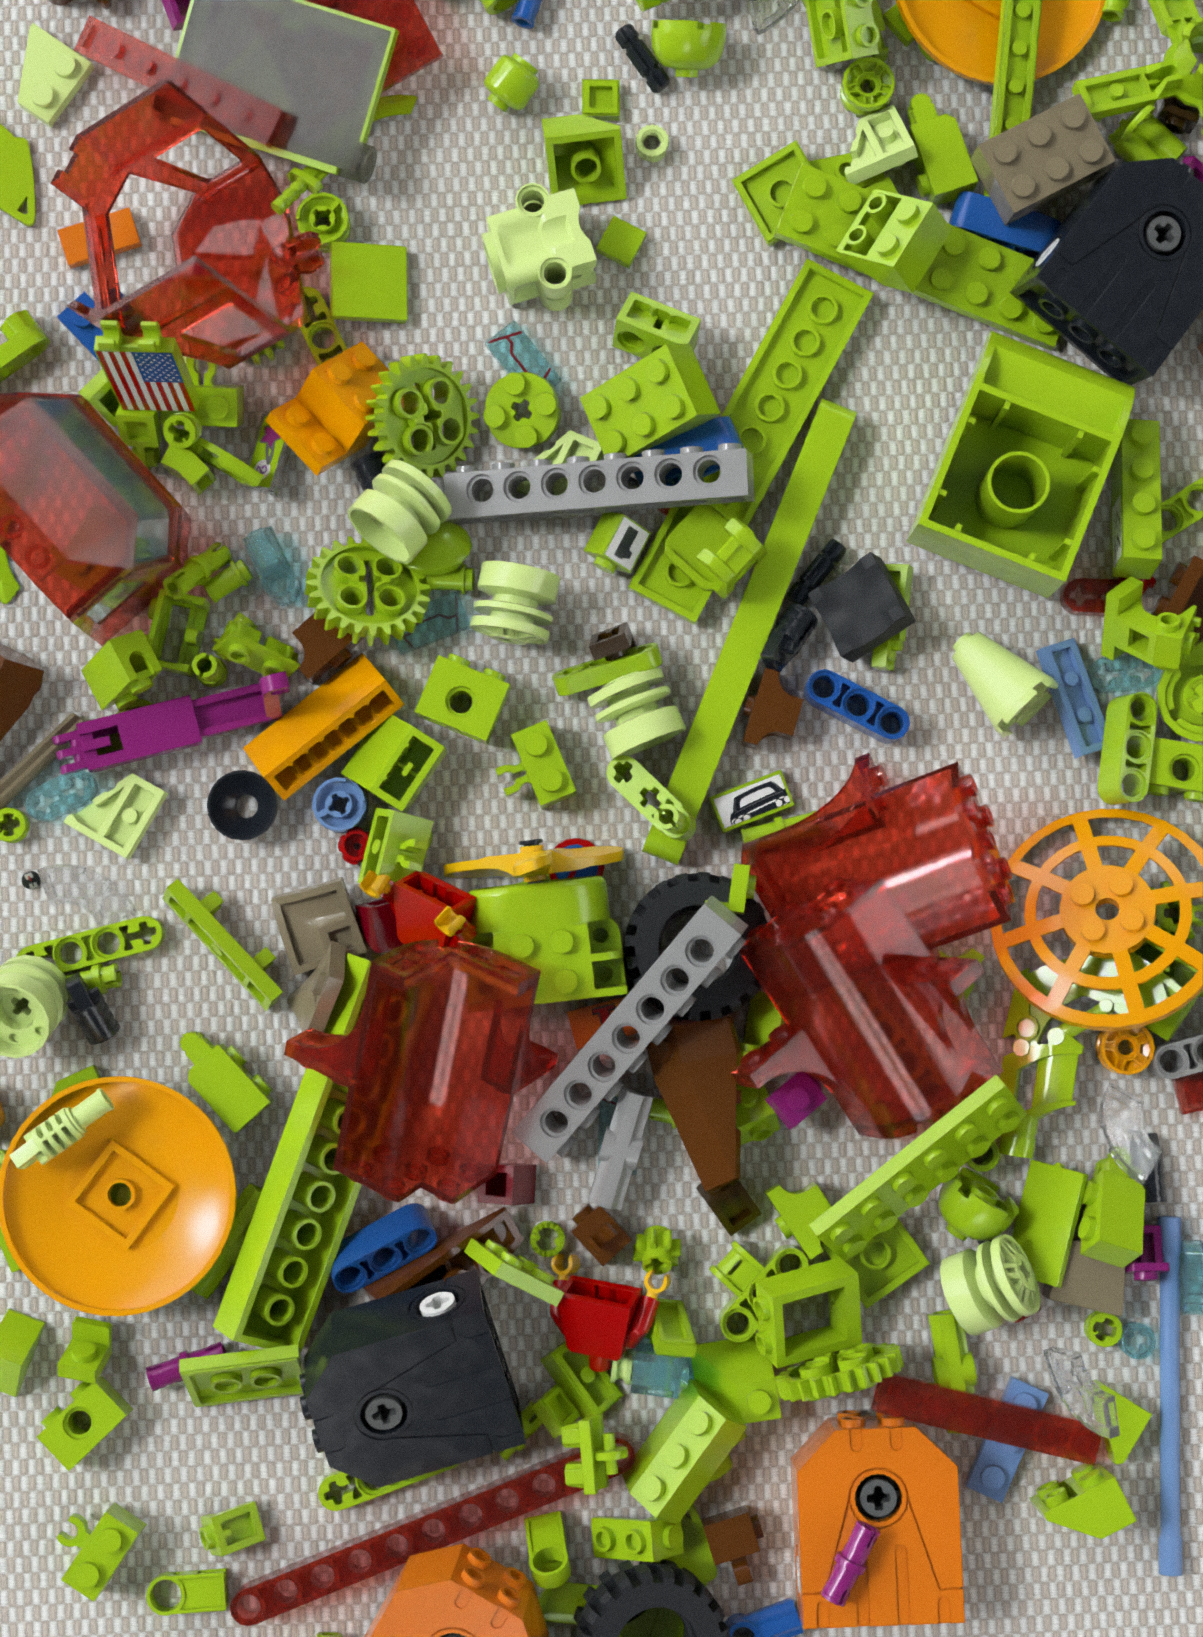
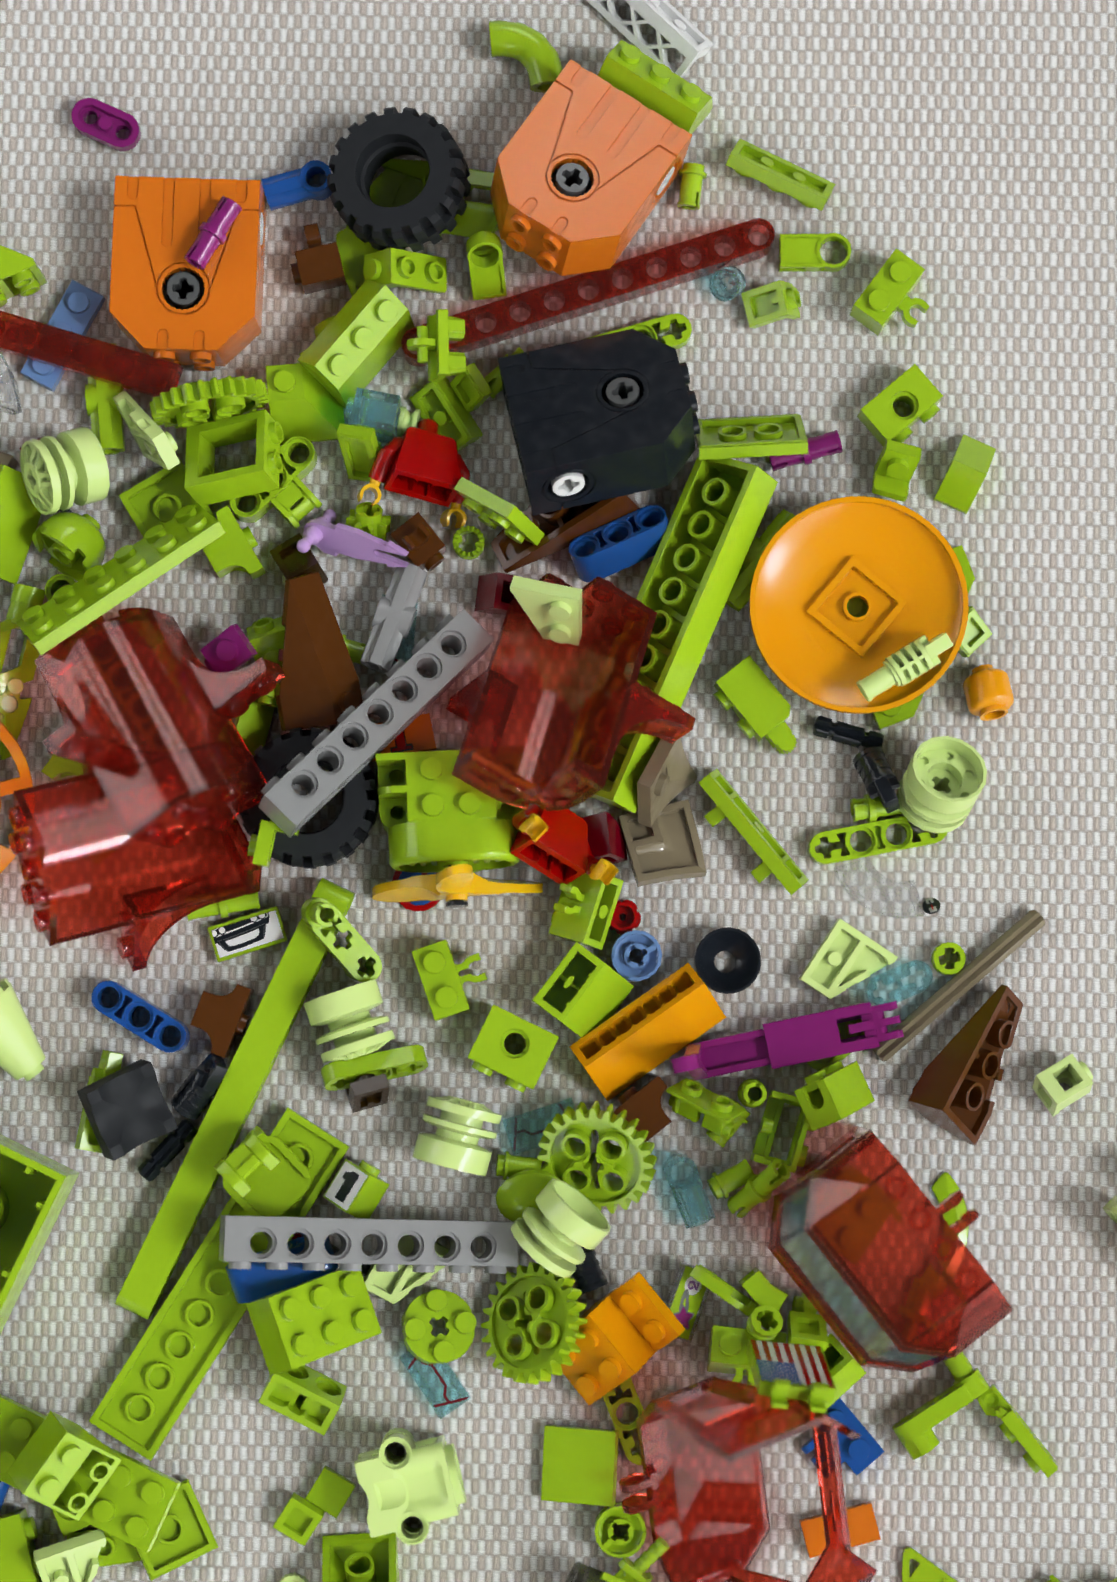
camera: 175 degrees left, 0 degrees up
(127, 1057) = (847, 733): none -> black axle
(291, 1544) = (719, 288): none -> clear light blue bush
(449, 1167) = (551, 608): none -> yellowish green wing
(651, 211) = (298, 1519): none -> lime plate
(675, 1228) = (348, 541): none -> lavender piece
(899, 1326) = (150, 438): none -> yellowish green wing

